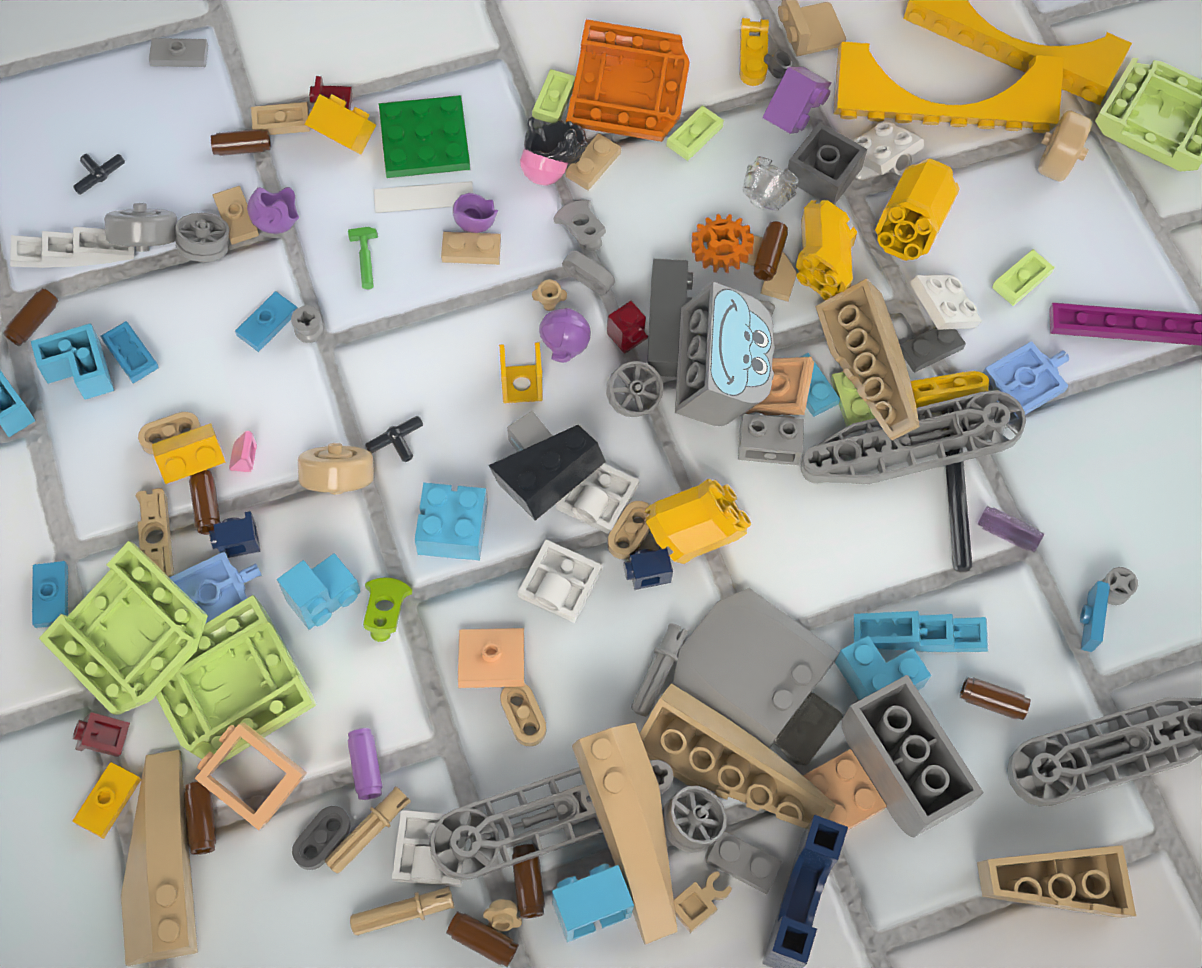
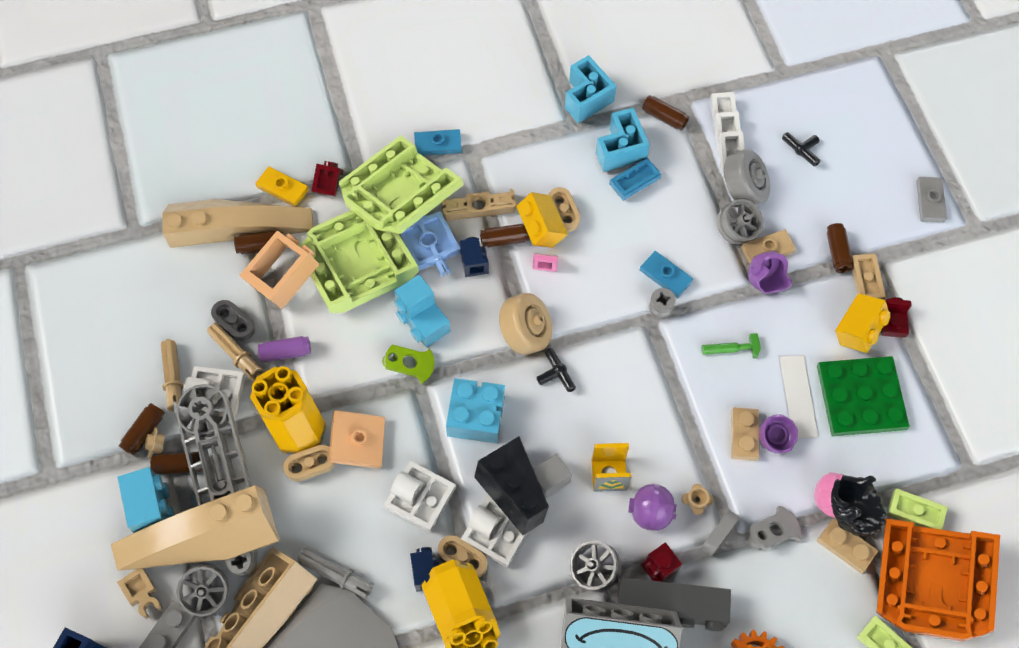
camera: 95 degrees right, 0 degrees up
(459, 738) = (288, 410): none -> yellow brick

